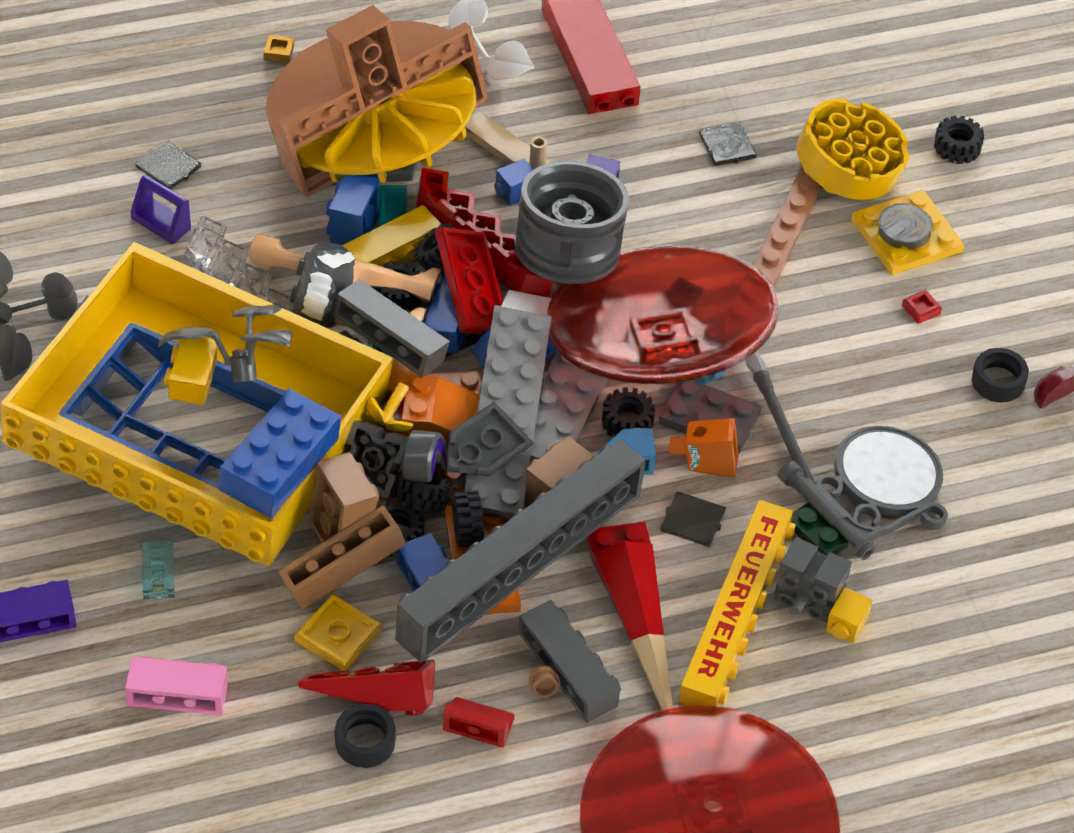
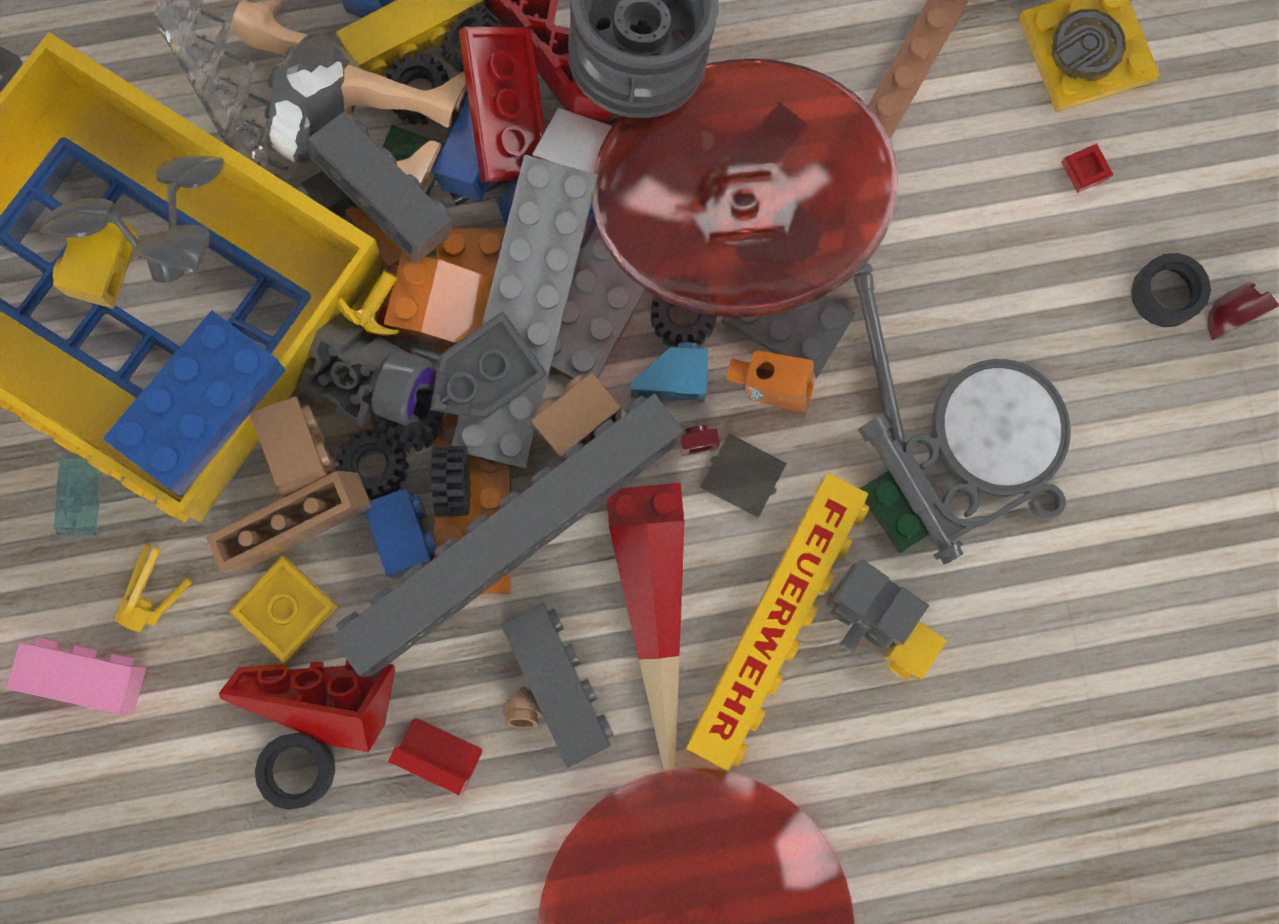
camera: 10 degrees right, 30 degrees up
(218, 636) = (135, 608): none -> yellow plant
(655, 494) = (699, 440): none -> dark red plate

